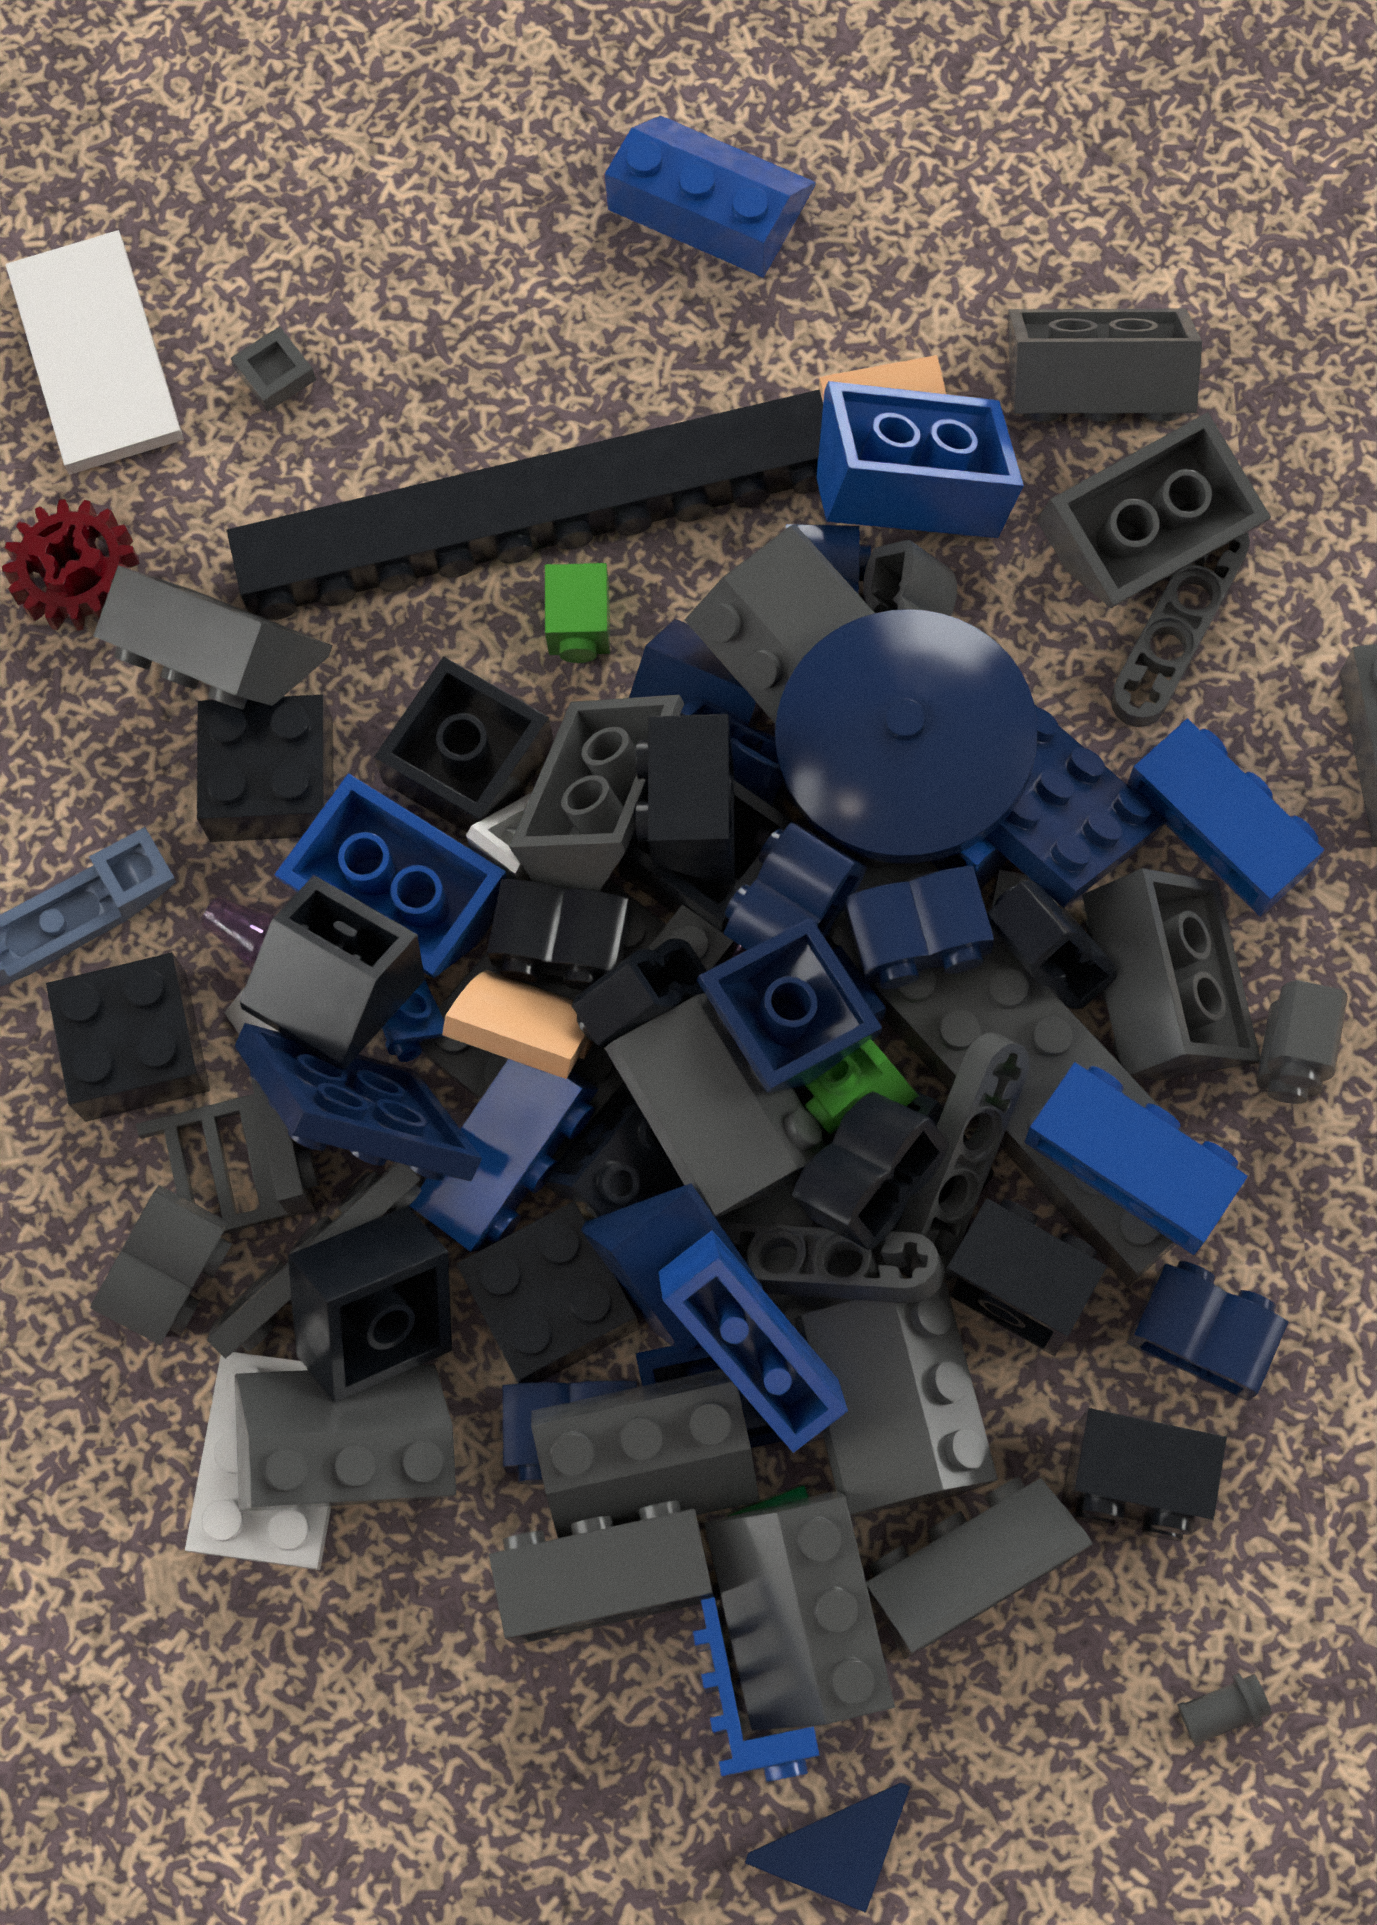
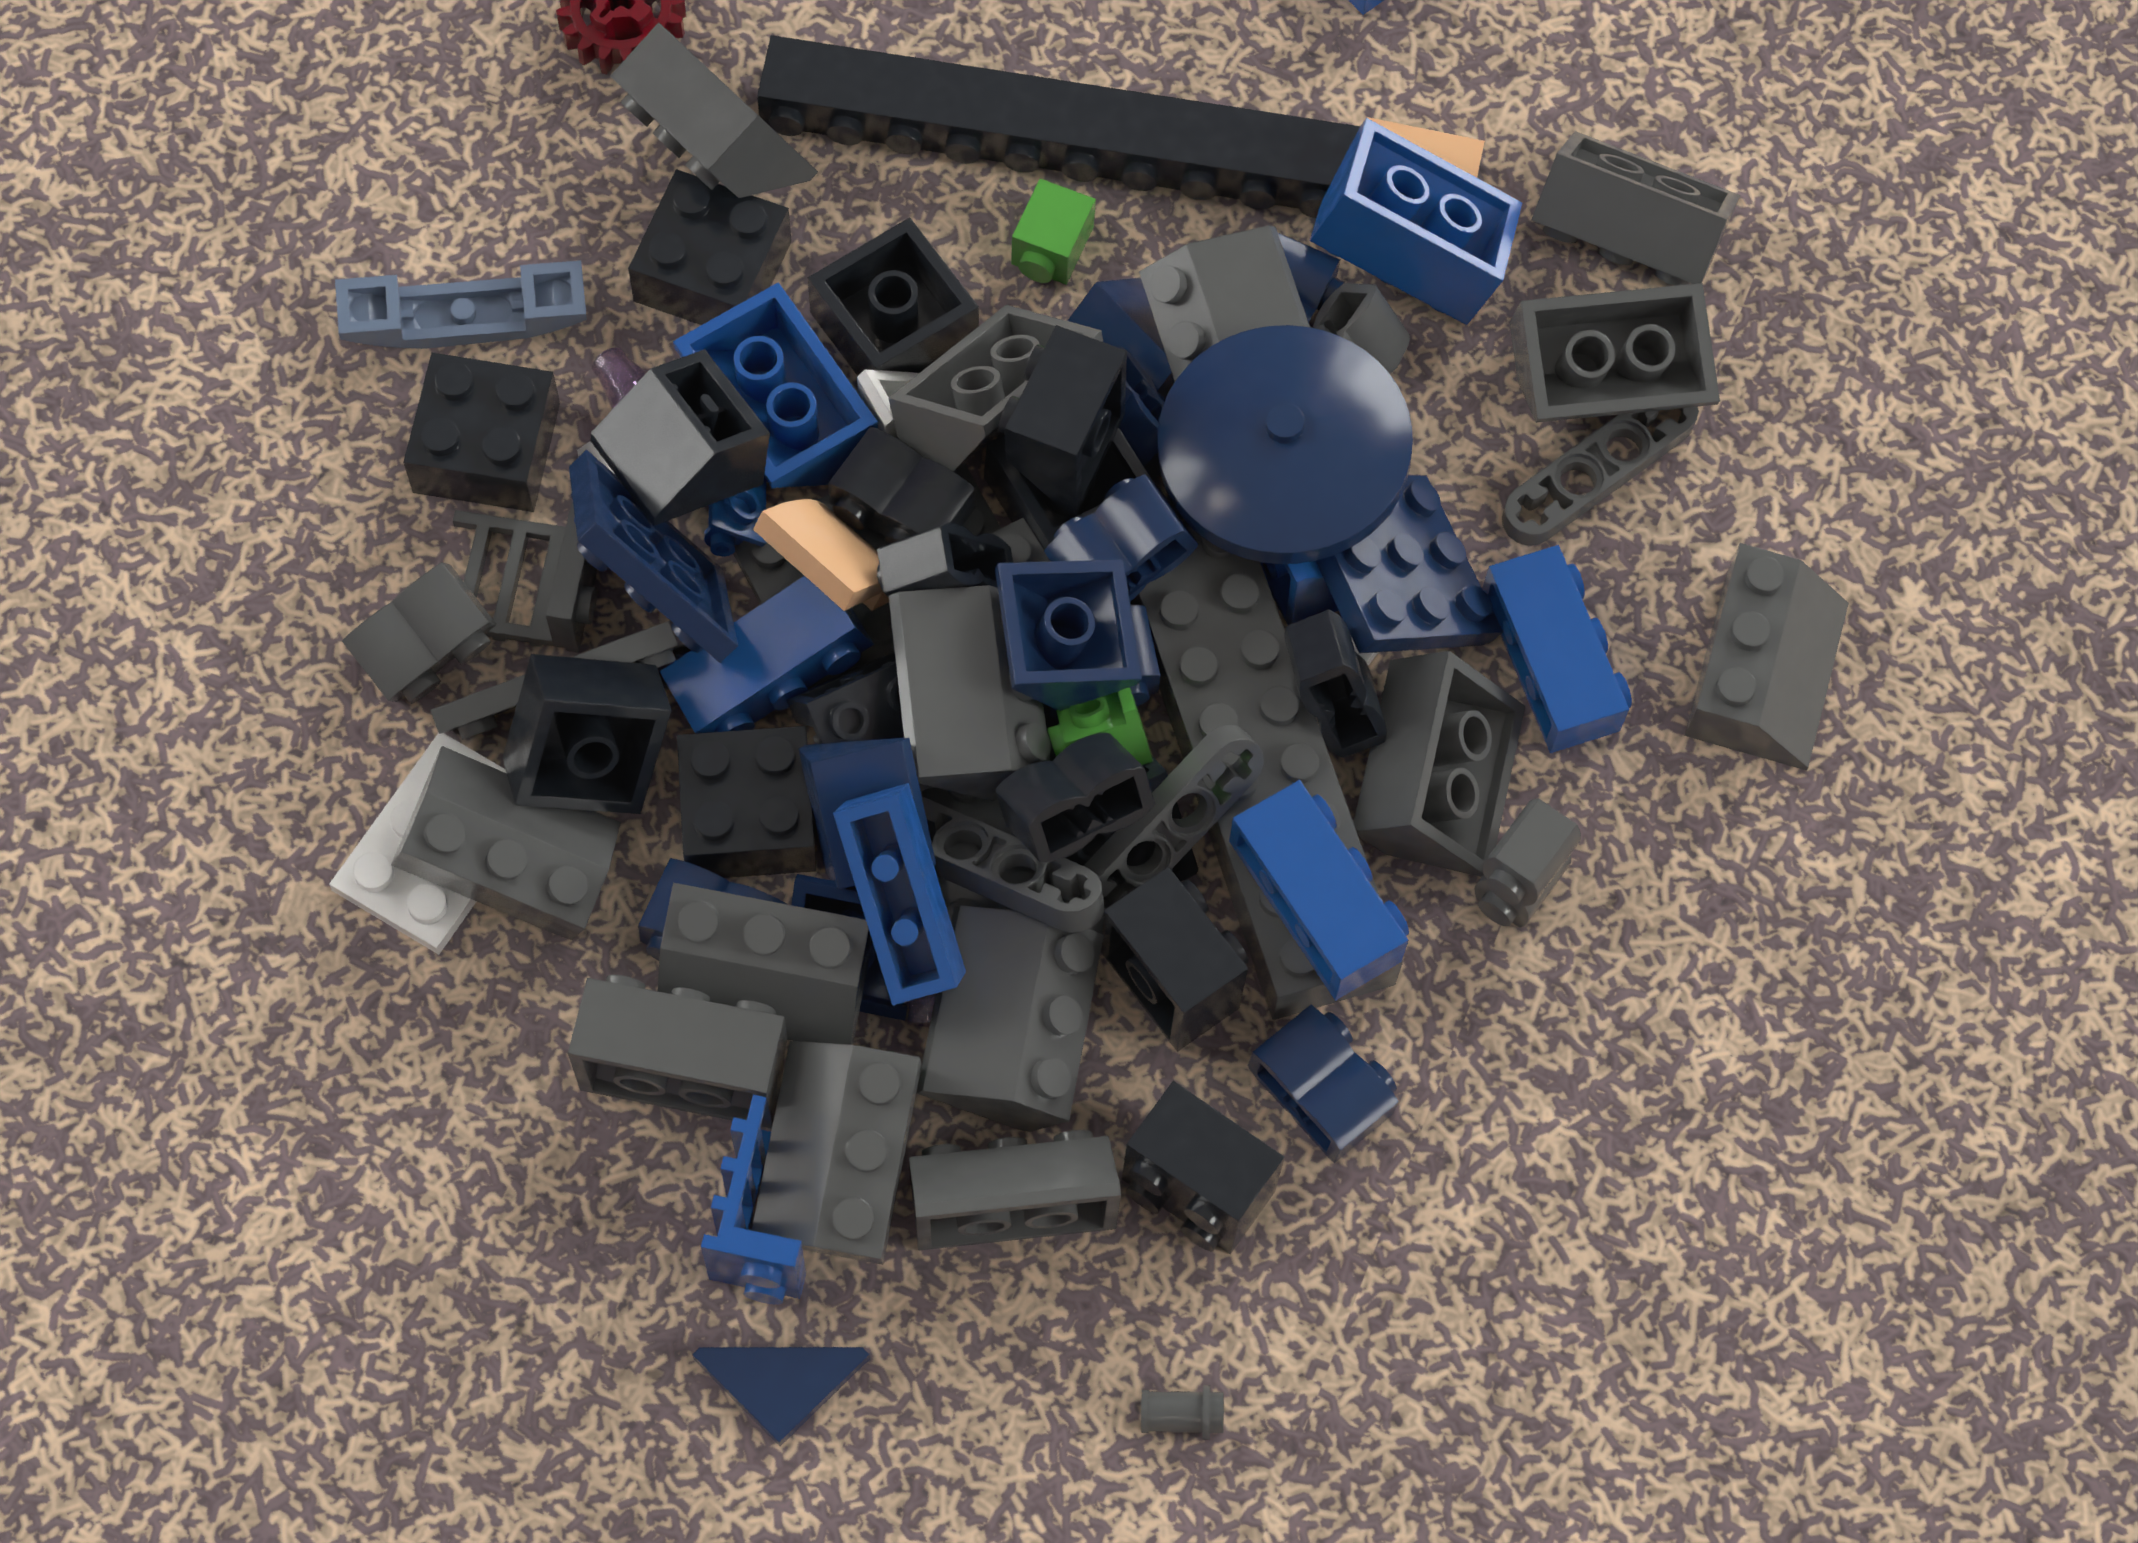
camera: 15 degrees right, 5 degrees down
(919, 927) = (1220, 614): dark blue brick -> none

